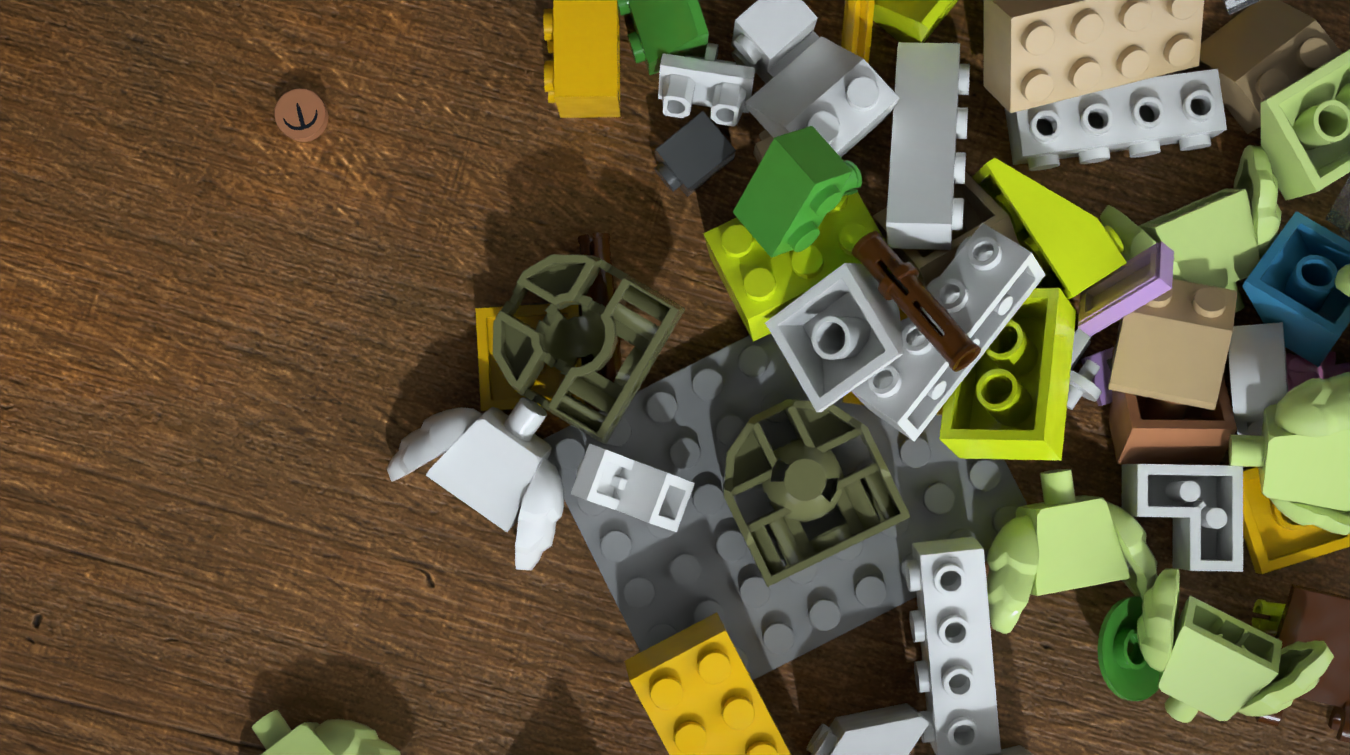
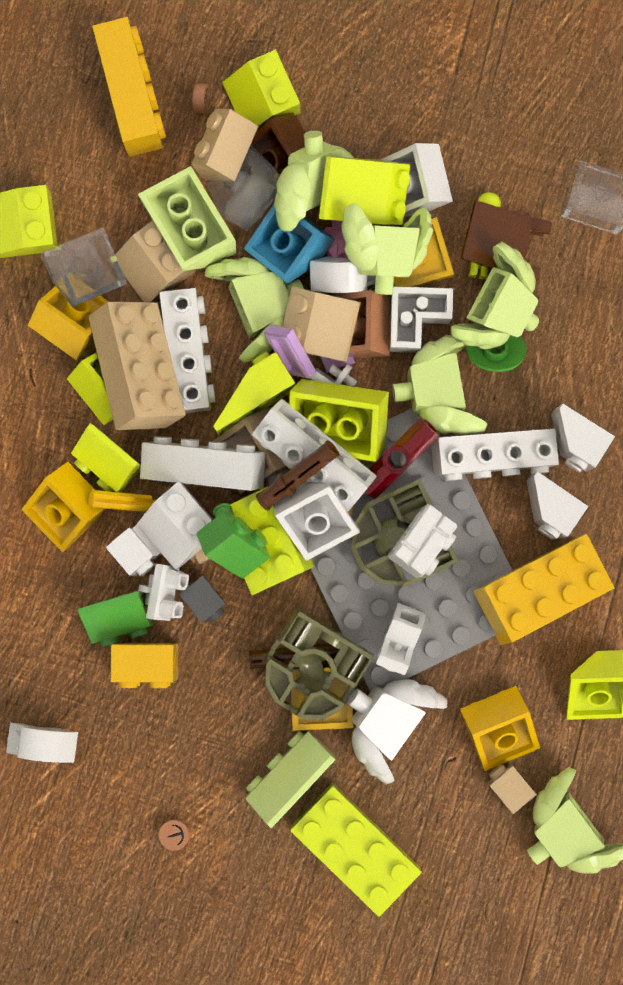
camera: 85 degrees left, 0 degrees up
(275, 417) = (355, 849): none -> neon yellow brick
(382, 680) = (510, 787): none -> tan brick
(396, 302) = (289, 777): none -> yellowish green slope
(483, 662) = (500, 728): none -> yellow slope
(803, 523) = (423, 541): none -> white brick
(968, 503) = (412, 445): none -> dark red piece

